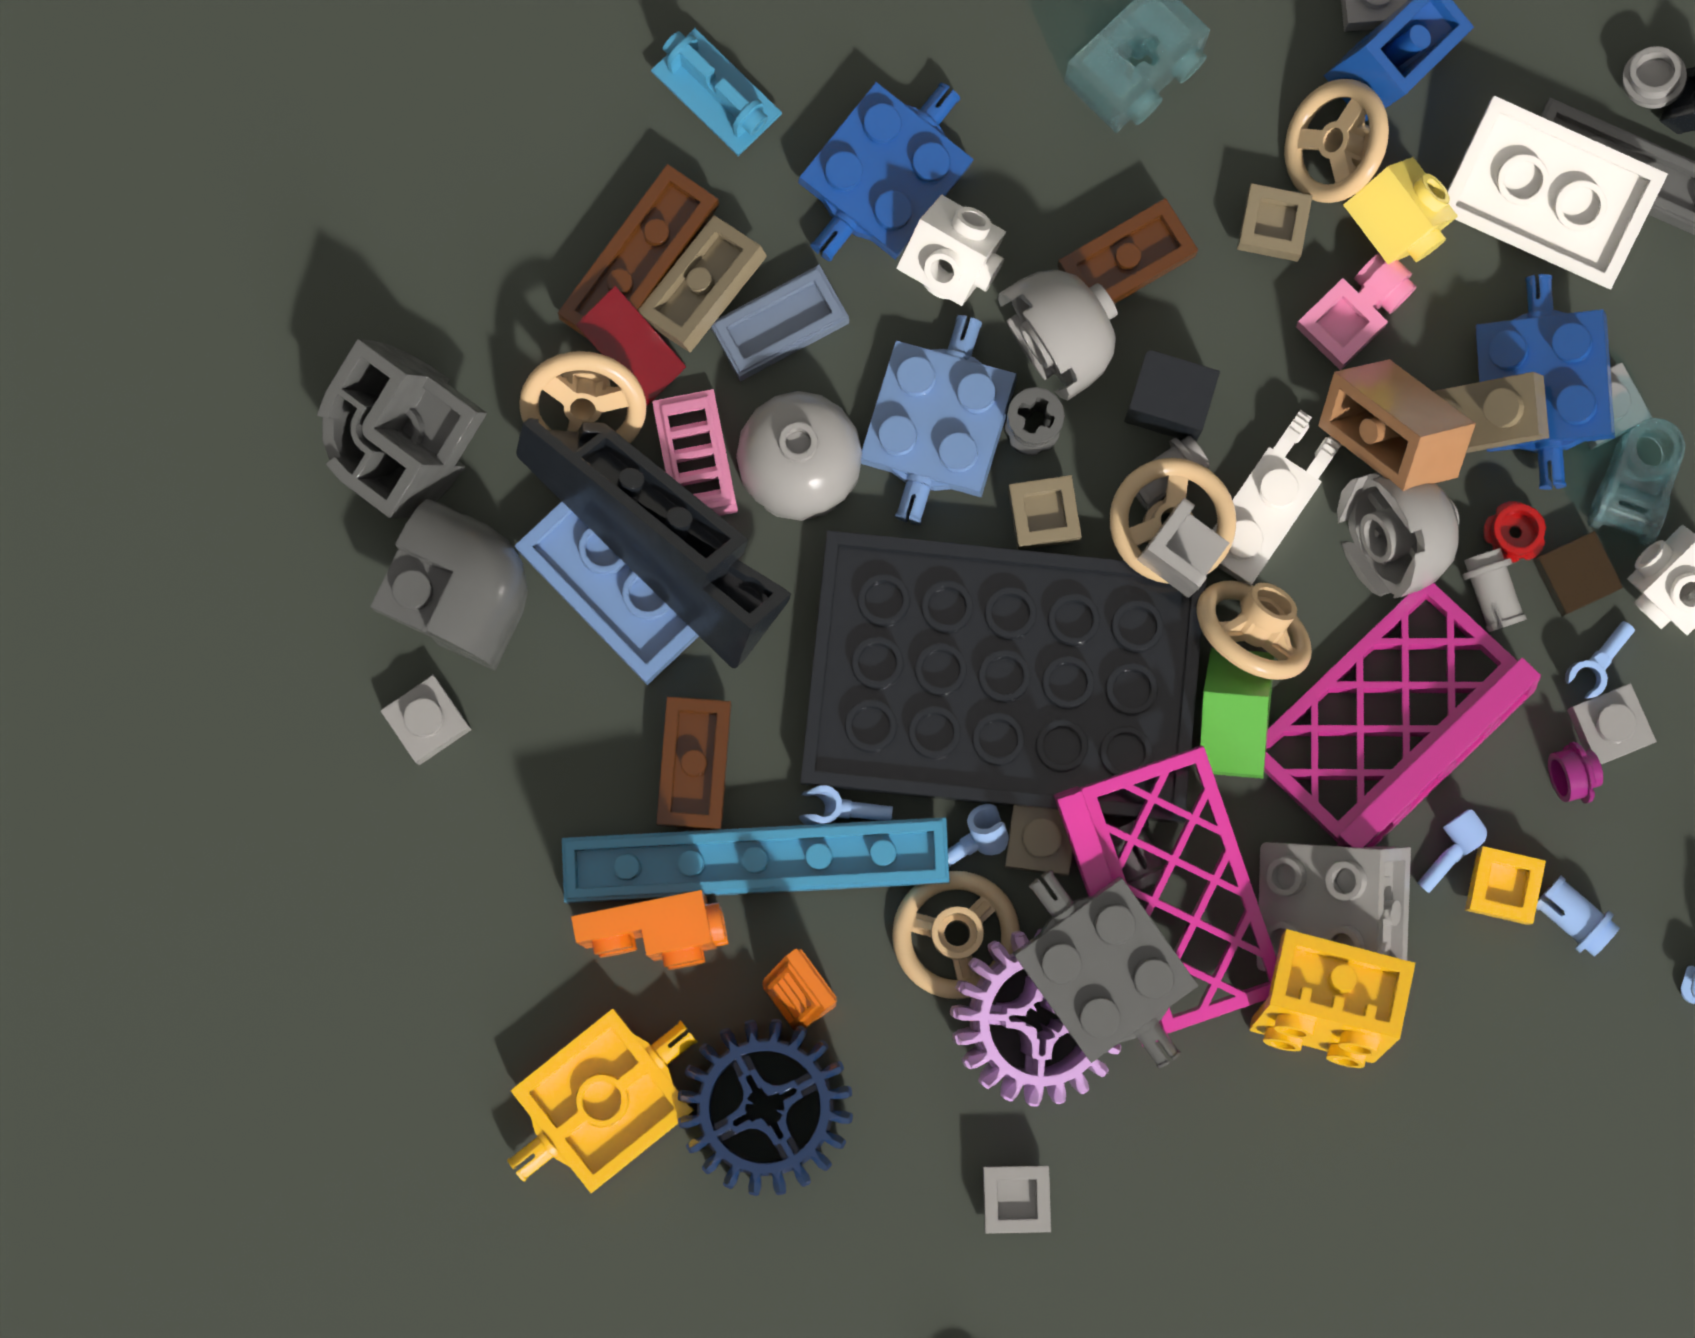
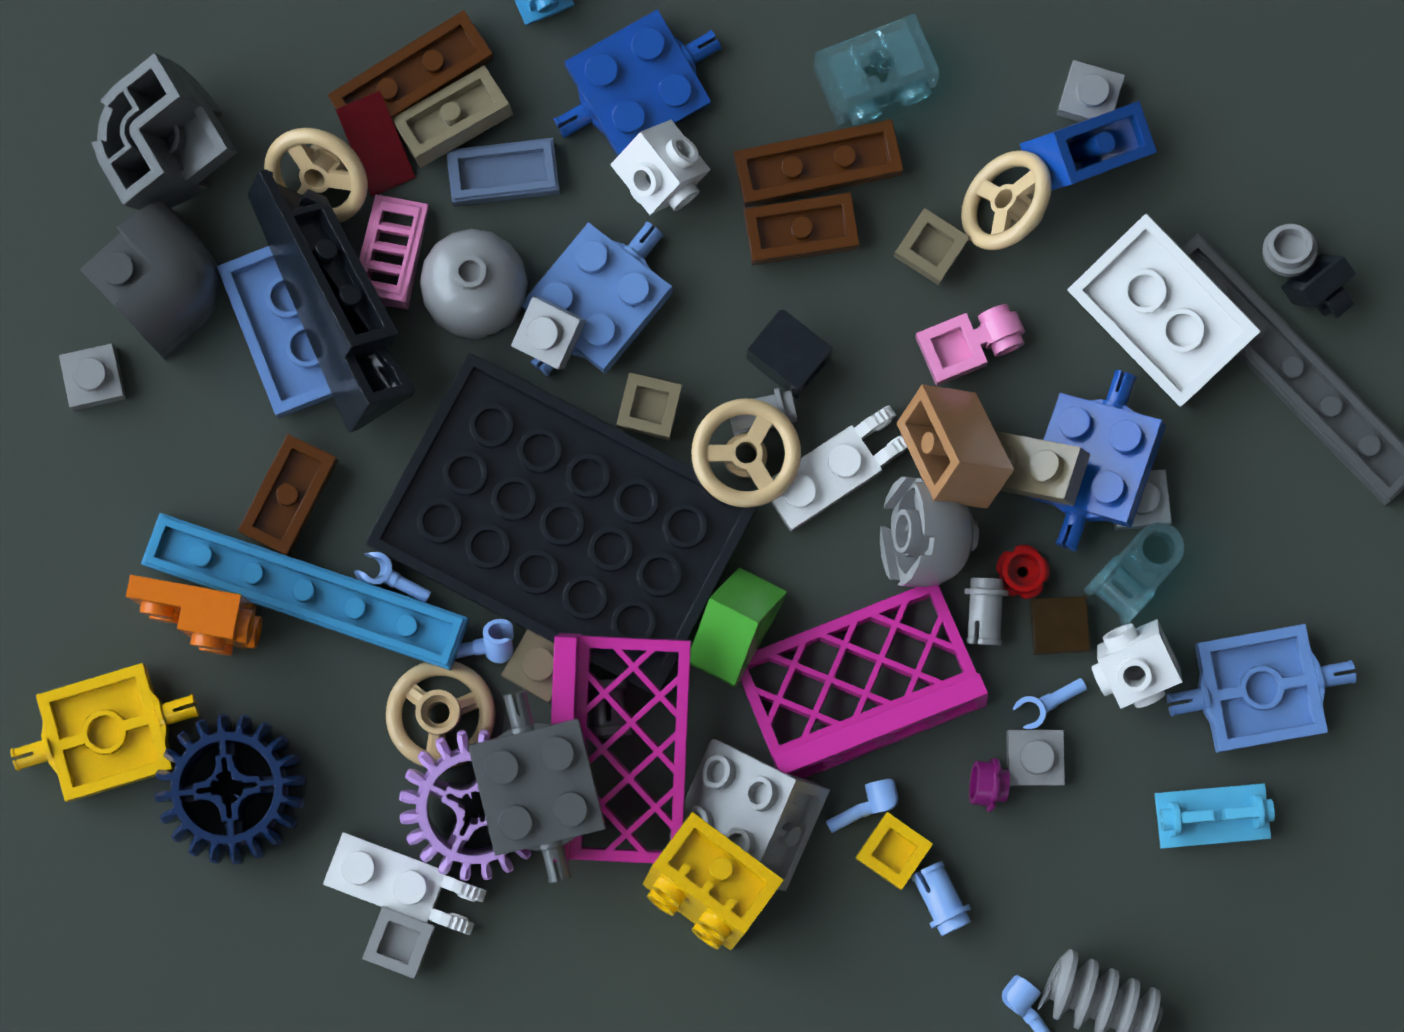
camera: 20 degrees right, 0 degrees up
(799, 990) = (297, 707): orange slope -> none
(906, 475) = (548, 332): none -> light grey plate
(986, 1135) = (397, 882): none -> white hinge
(1022, 407) = (670, 313): dark grey bush -> none
(1063, 327) = (723, 263): light grey cylinder -> none
(1116, 180) = (818, 163): none -> reddish brown plate
(1183, 550) = (740, 478): light grey panel -> none
(1265, 621) = (781, 562): tan piece -> none
(1403, 211) = (1035, 278): light yellow brick -> none

